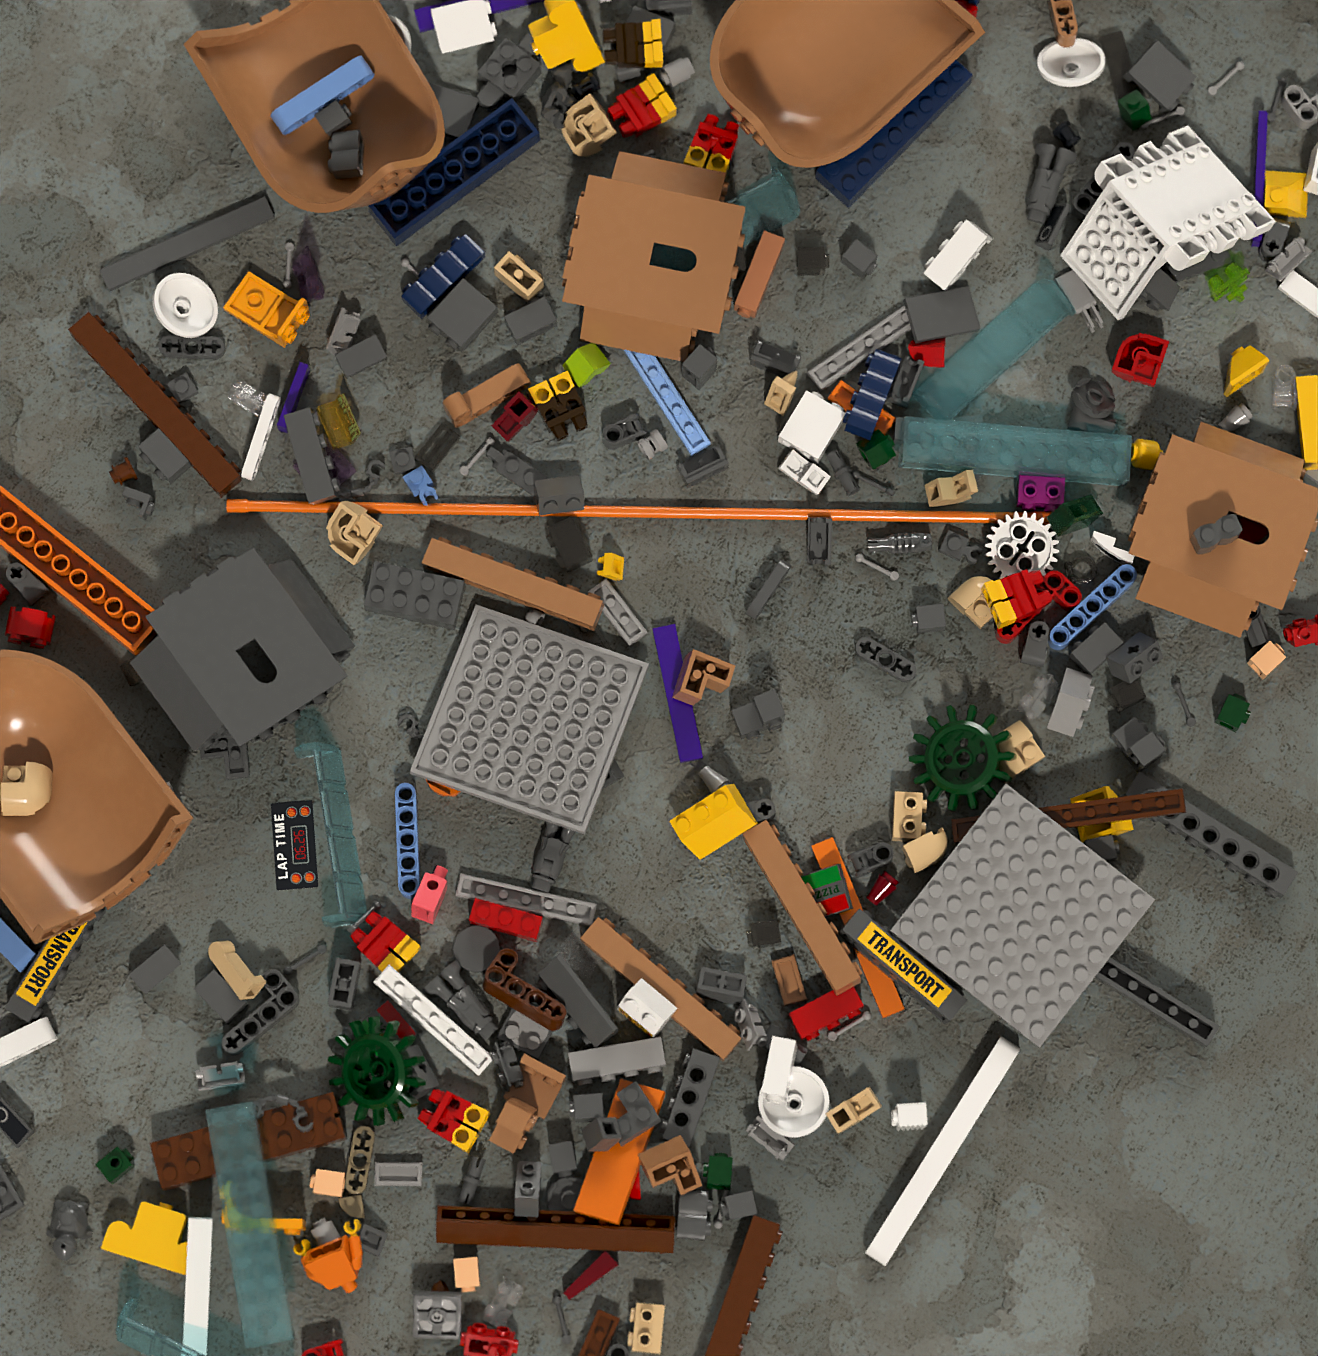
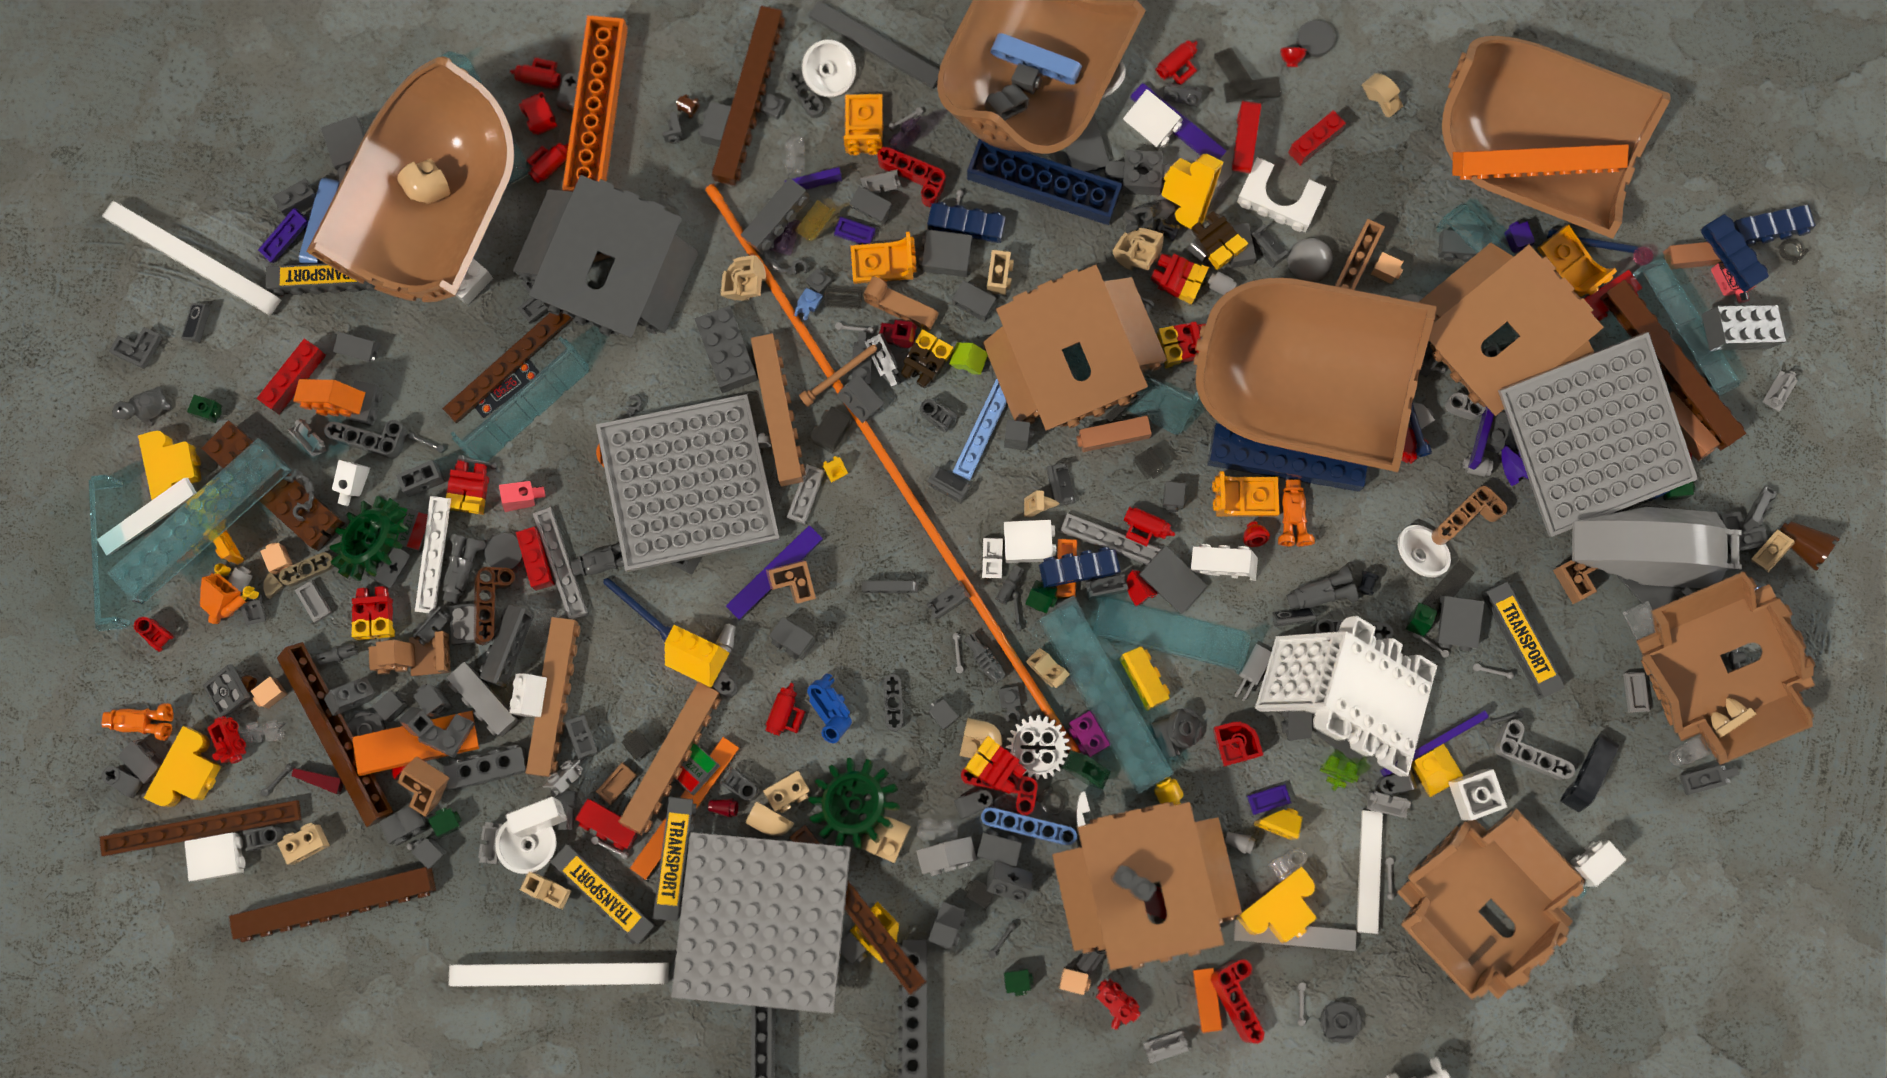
camera: 60 degrees right, 0 degrees up
(87, 651) = (548, 162): none -> red piece
(142, 1053) = (284, 383): none -> red brick
(199, 1022) = (328, 397): none -> orange brick
(234, 970) = (385, 399): tan leg -> none
(260, 437) = (769, 176): white beam -> none
(278, 829) = (506, 365): none -> reddish brown plate
(290, 1051) = (349, 480): none -> white torso
(351, 296) = (909, 172): none -> red beam
(375, 391) = (854, 231): none -> dark purple tile
(403, 830) = (553, 447): medium blue beam -> none
(428, 380) = (884, 260): none -> light orange bracket
(519, 544) = (809, 396): none -> medium nougat piece
(531, 446) = (884, 360): none -> hinge
(656, 444) = (945, 440): light grey wheel -> none
(668, 837) = (664, 631): none -> dark blue piece
(824, 773) = (781, 712): none -> red piece
(853, 722) = (830, 708): none -> blue piece
(869, 302) = (1147, 523): none -> red piece
(892, 1058) = (603, 894): none -> brick
(905, 191) = (1245, 496): none -> light orange bracket
(909, 1116) = (565, 934): white brick -> none
(949, 207) = (1255, 535): none -> red brick
(953, 158) = (1294, 514): none -> orange piece
(1021, 404) = (1145, 678): none -> yellow slope
(1212, 366) = (1269, 799): none -> dark purple tile
(1215, 30) = (1523, 640): none -> brick

